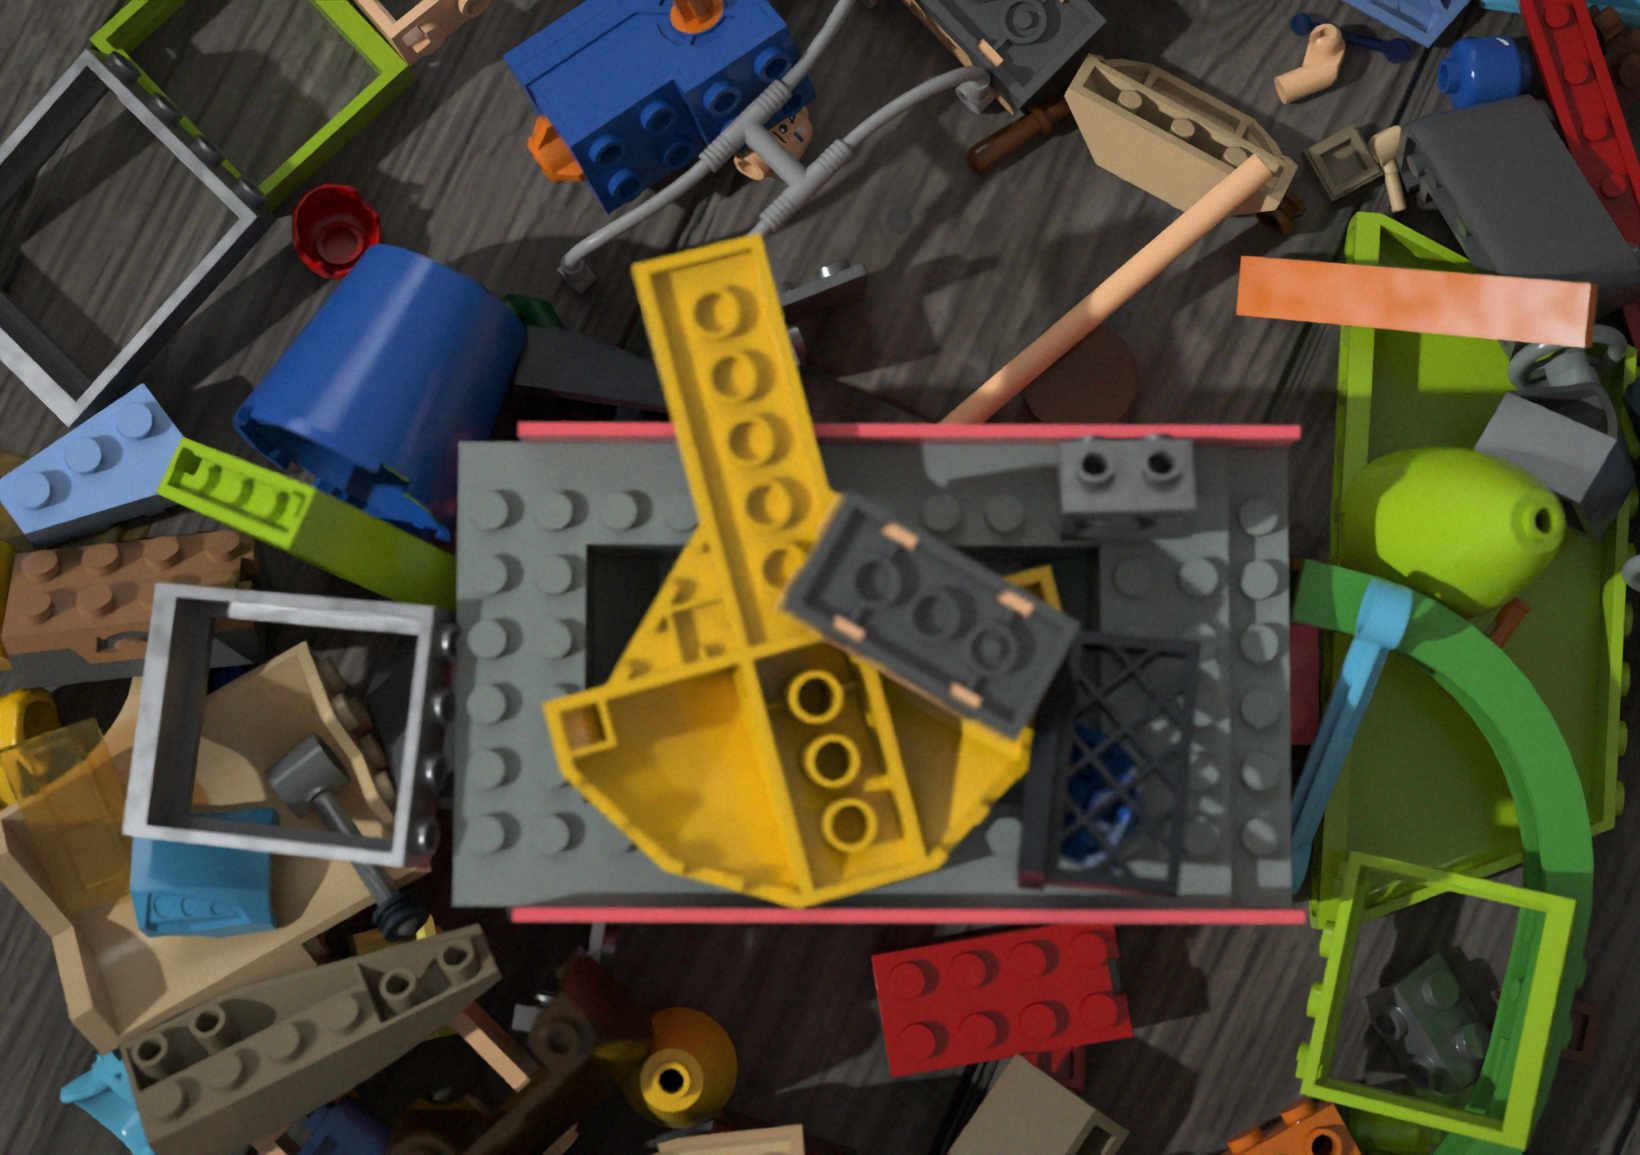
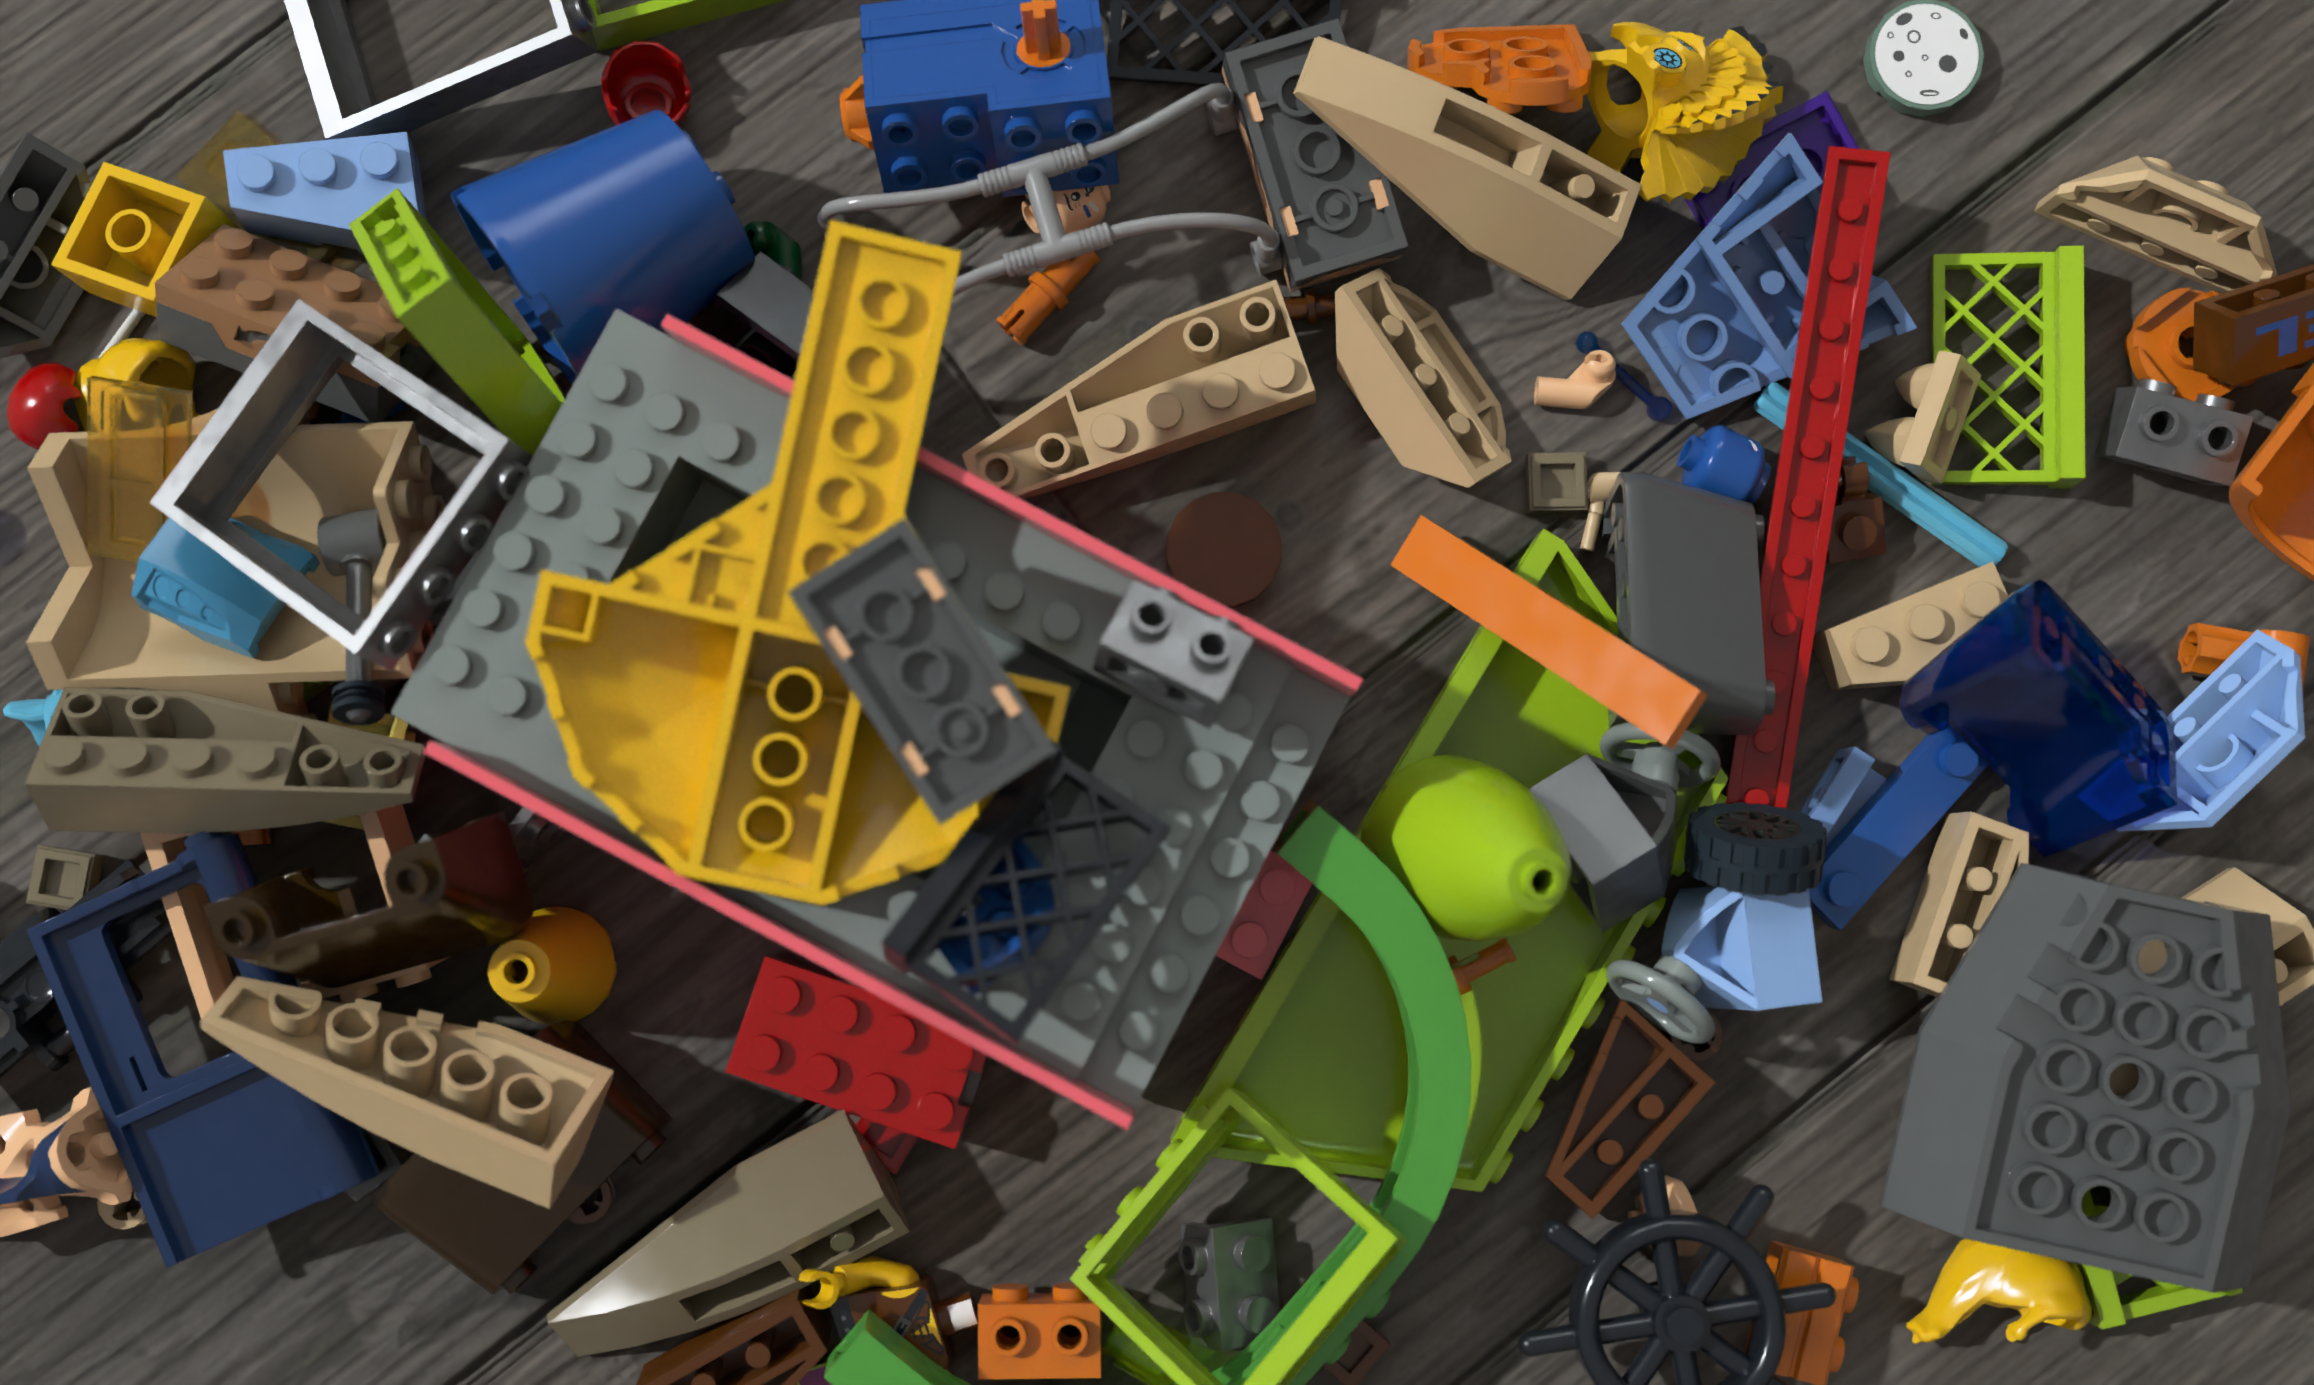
camera: 35 degrees right, 0 degrees up
(793, 242) = (1044, 295): none -> orange pin
(833, 287) = (992, 351): flat silver bracket -> none
(949, 269) = (1156, 396): none -> tan wedge
(1112, 293) = (1285, 488): light nougat piece -> none
(1281, 218) = (1479, 496): reddish brown bush -> none
(1377, 630) = (1341, 908): medium azure piece -> none

